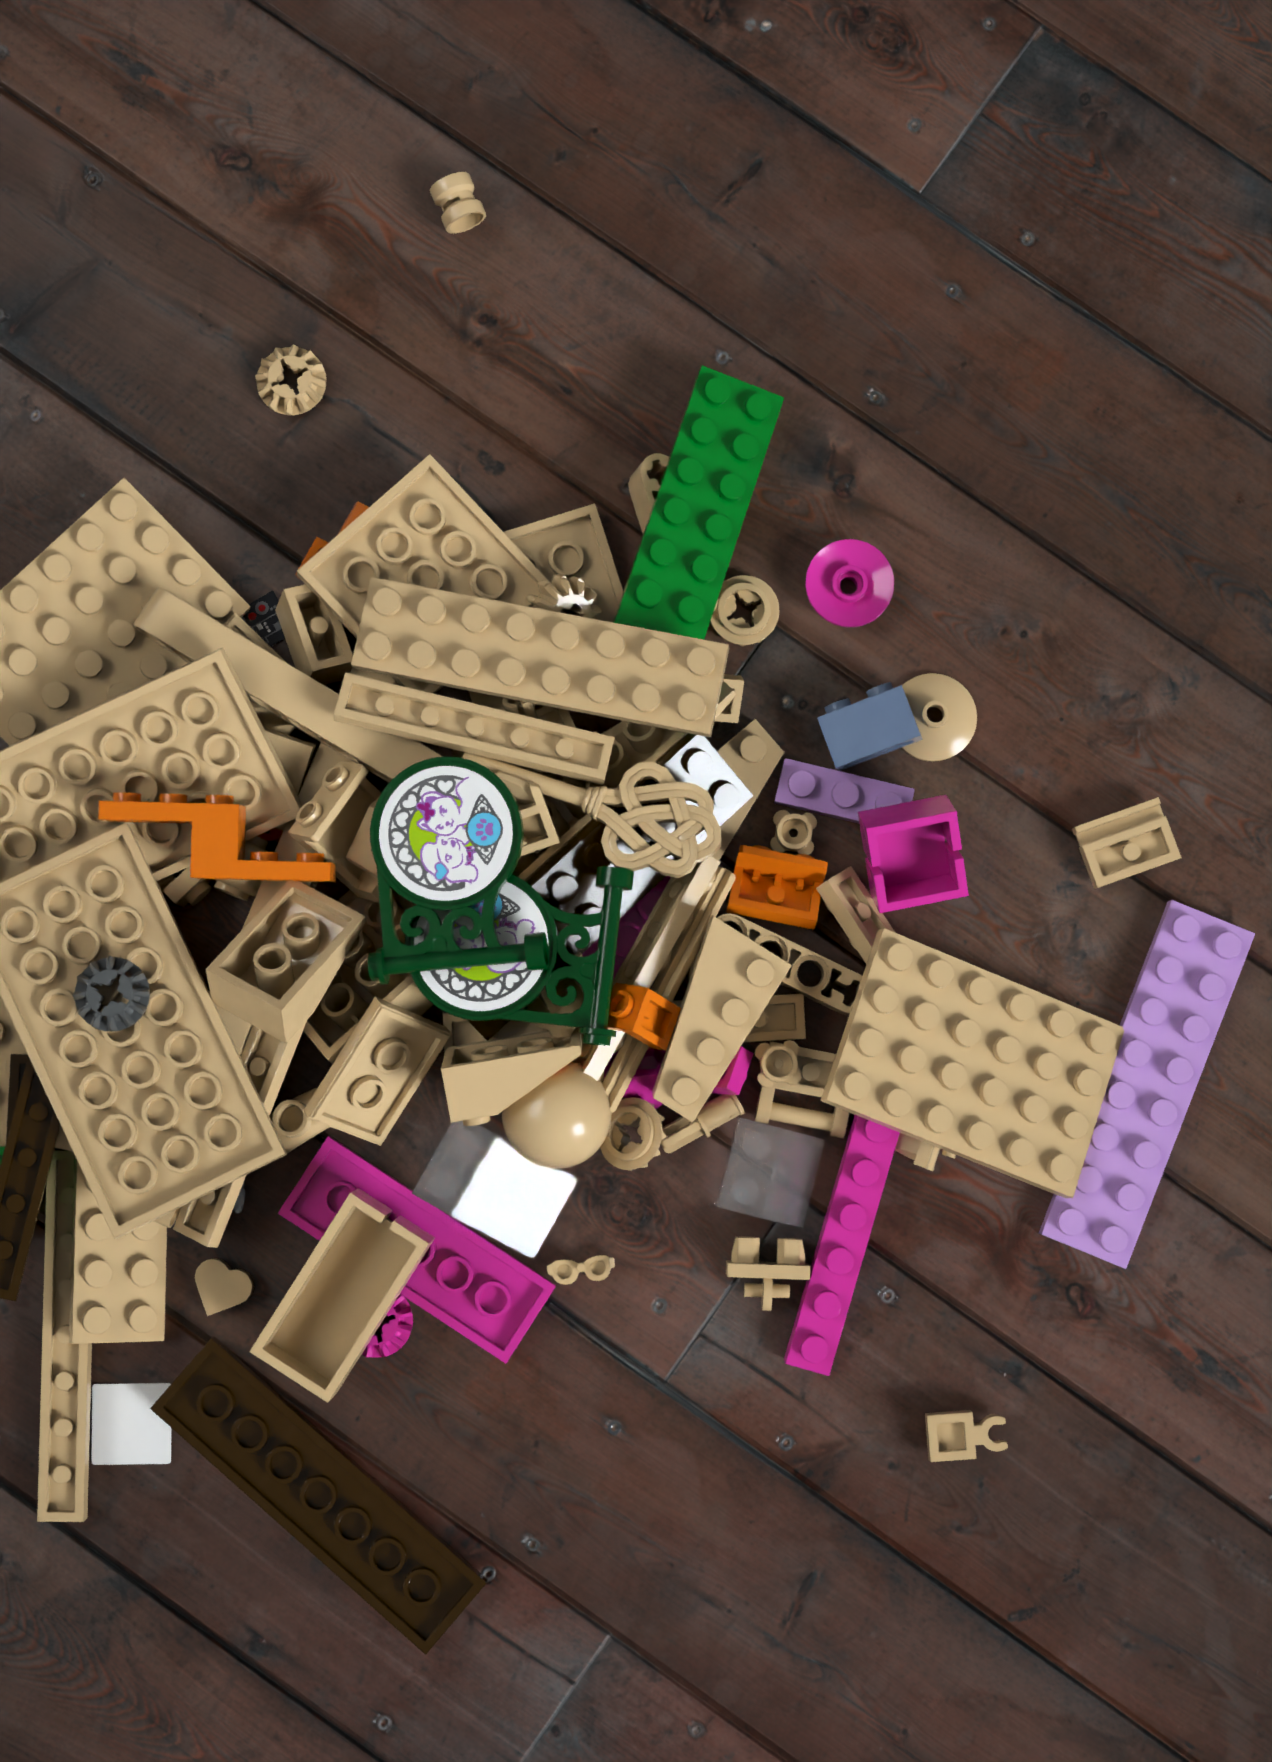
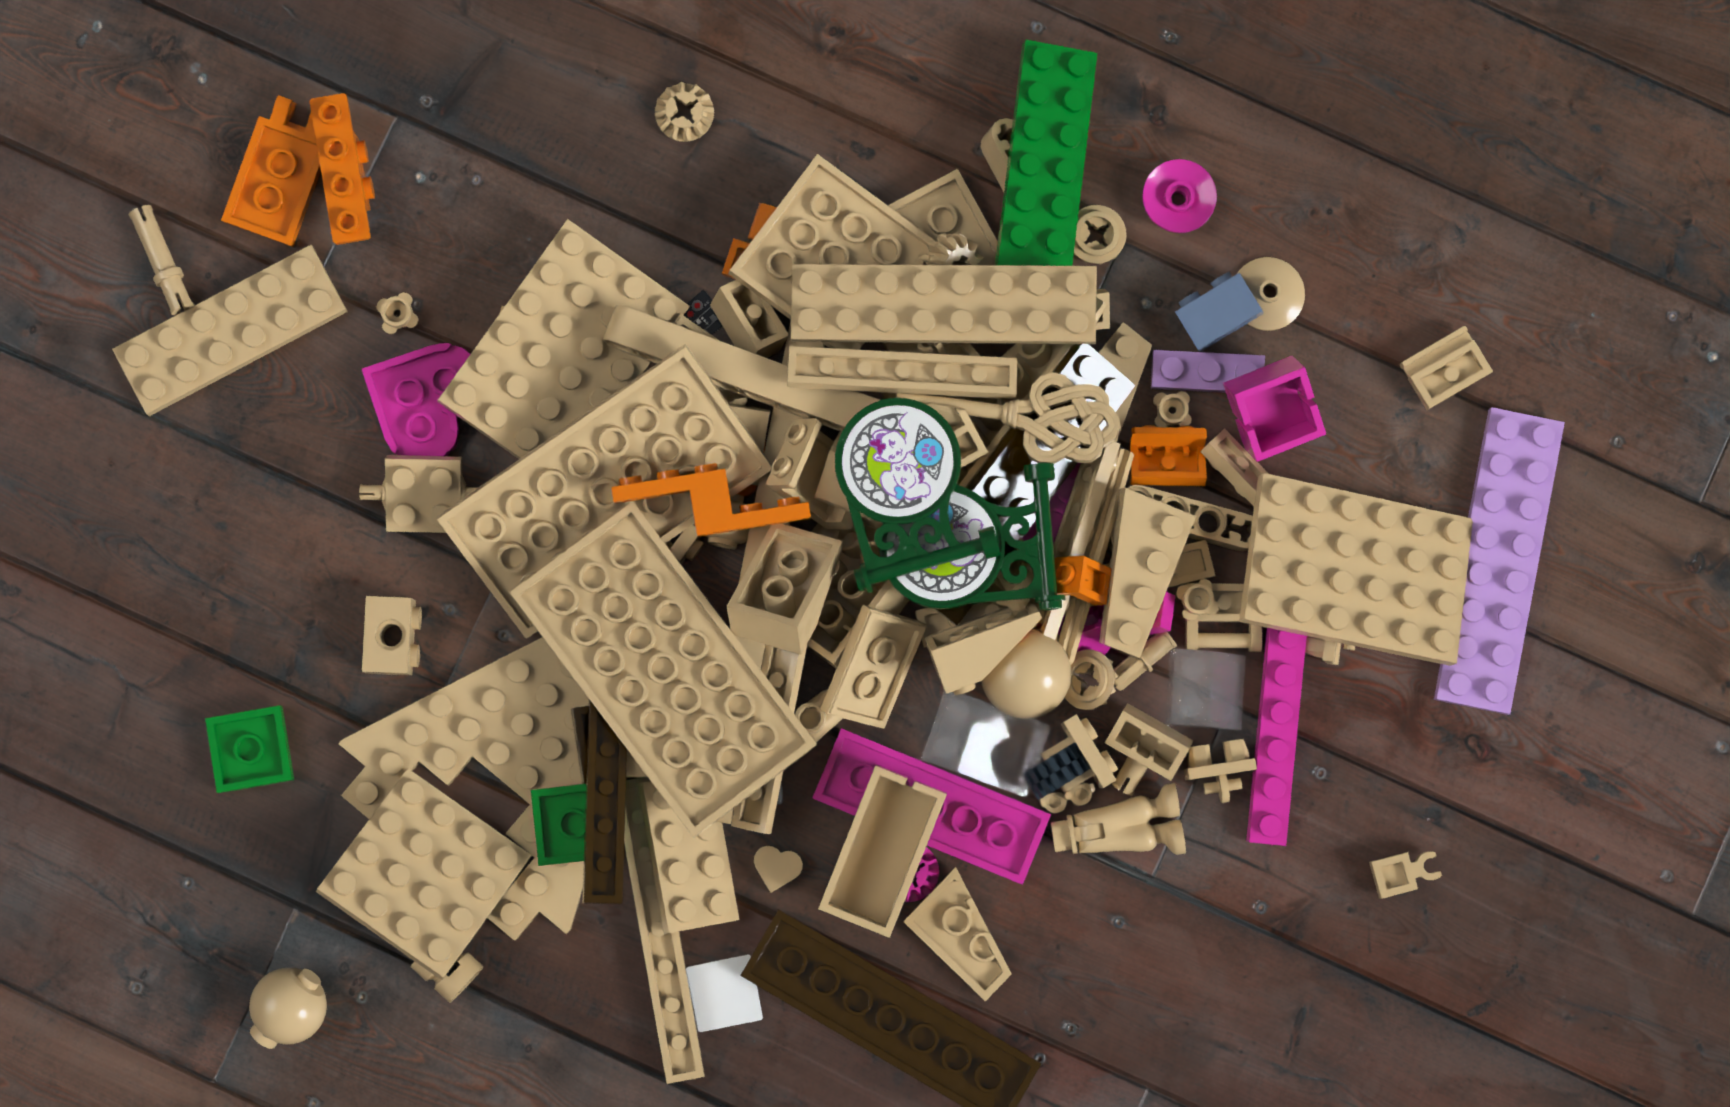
camera: 15 degrees left, 0 degrees up
(115, 1015) = (660, 657): dark grey gear -> none
(420, 1410) = (959, 936): none -> tan wing
(591, 1229) = (1071, 761): none -> plate
(639, 1316) = (1123, 826): none -> tan piece
(685, 1227) = (1147, 745): none -> tan brick

